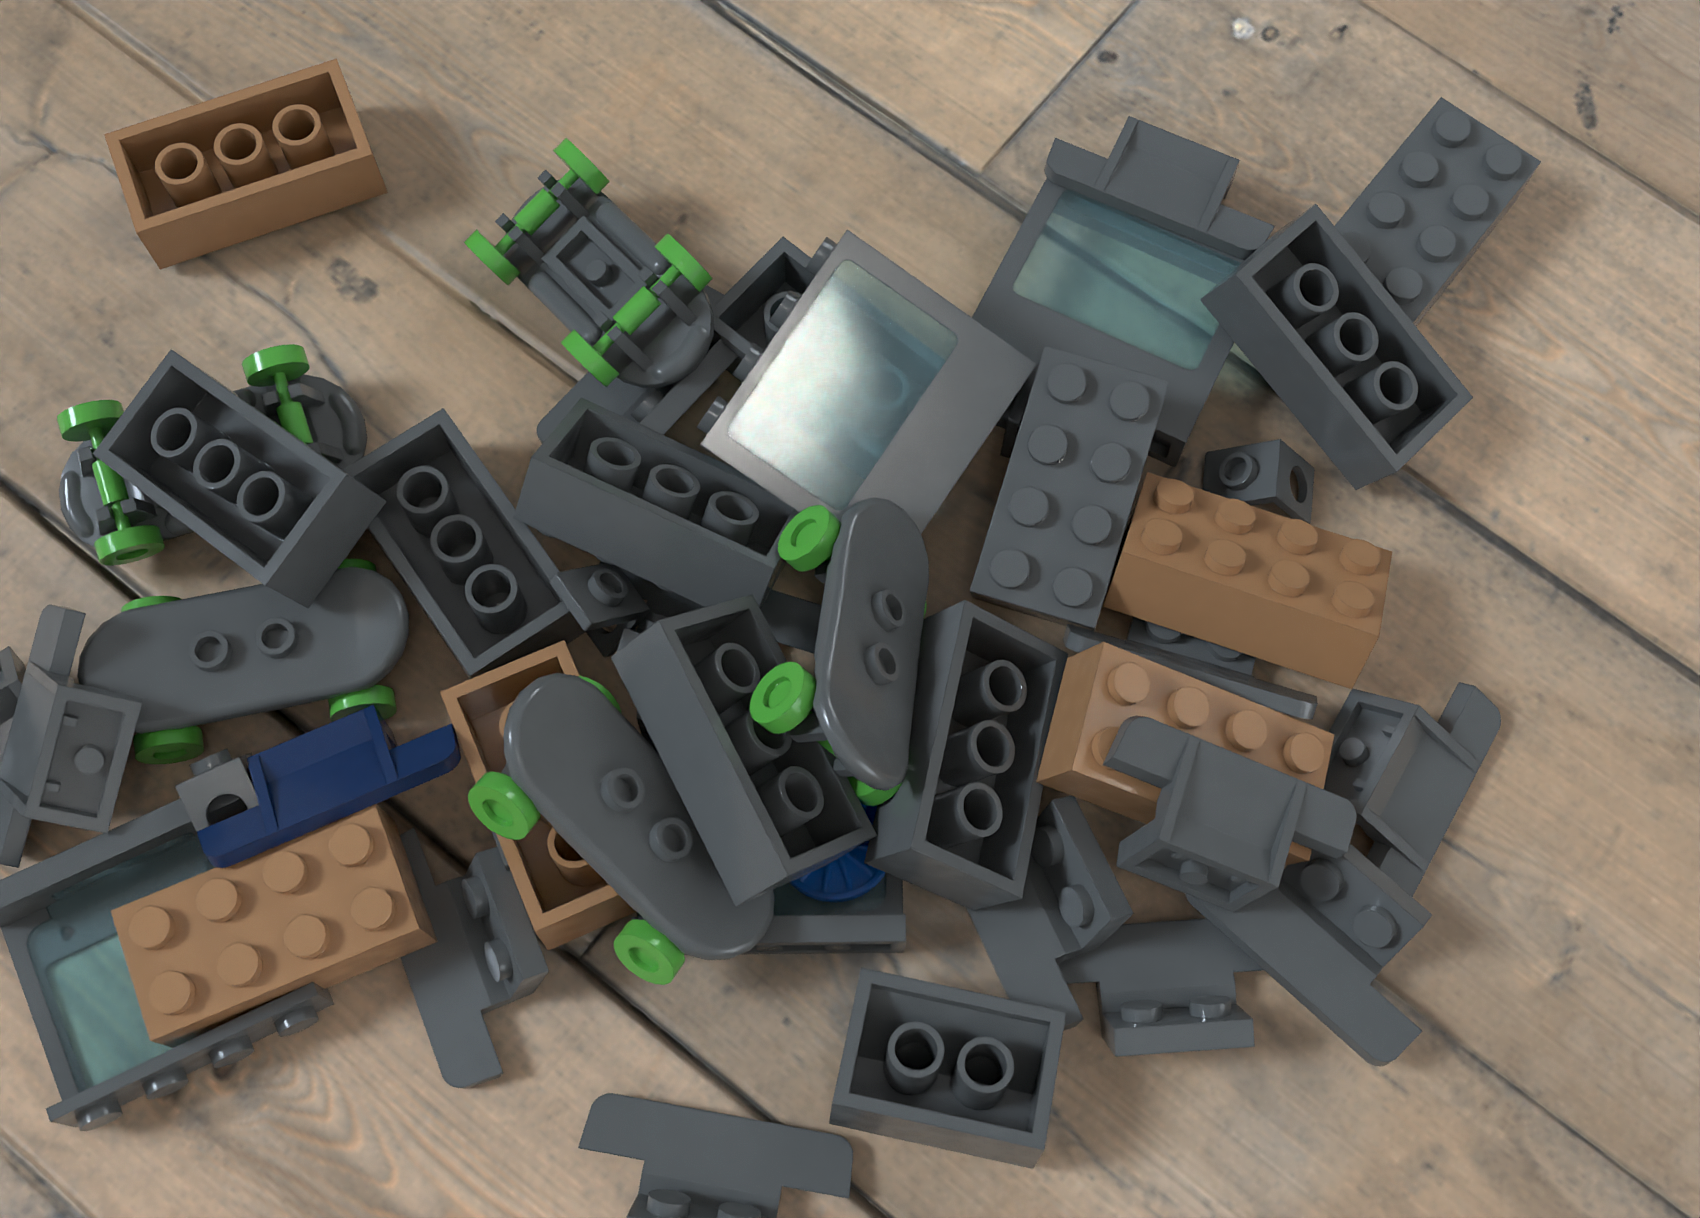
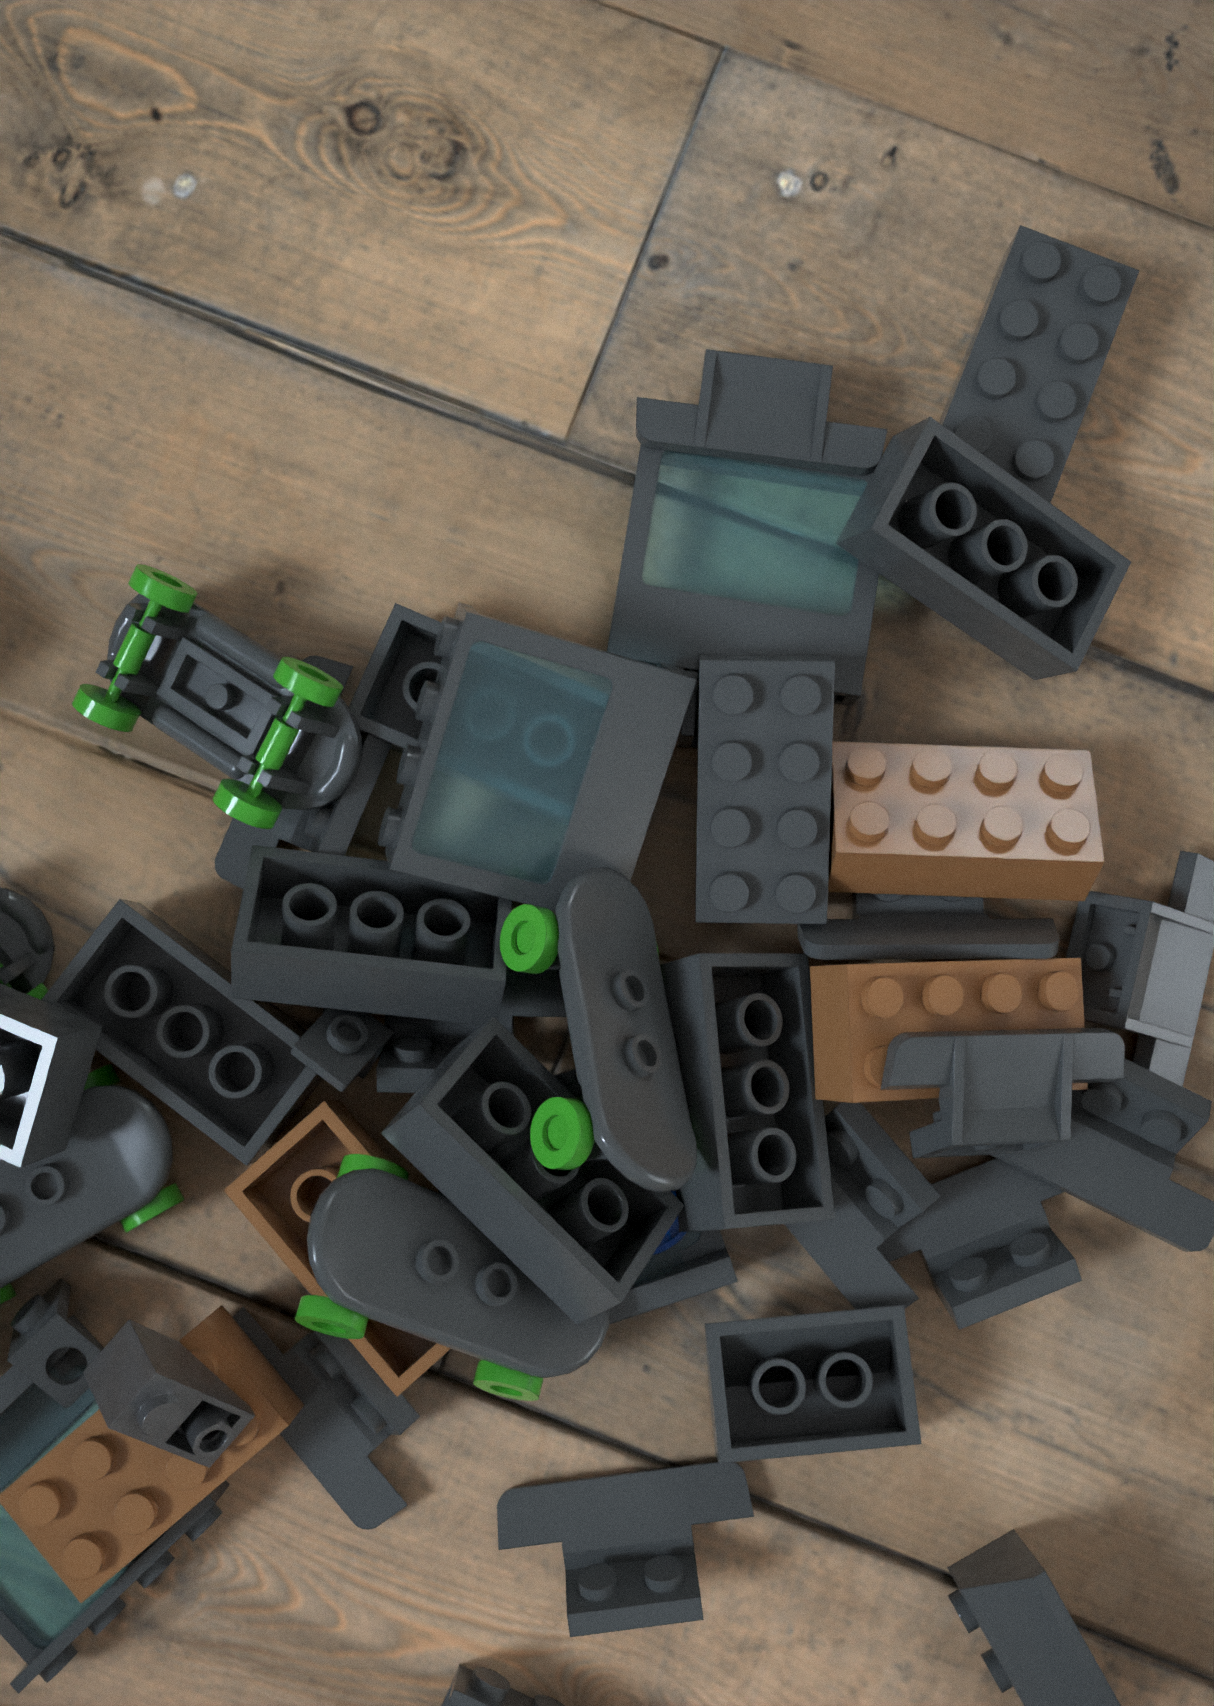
camera: 15 degrees left, 15 degrees up
(317, 846) = (165, 1395): none -> flat silver slope
(326, 779) = (160, 1287): dark blue plate -> none
(1261, 476) = (936, 702): dark grey bracket -> none

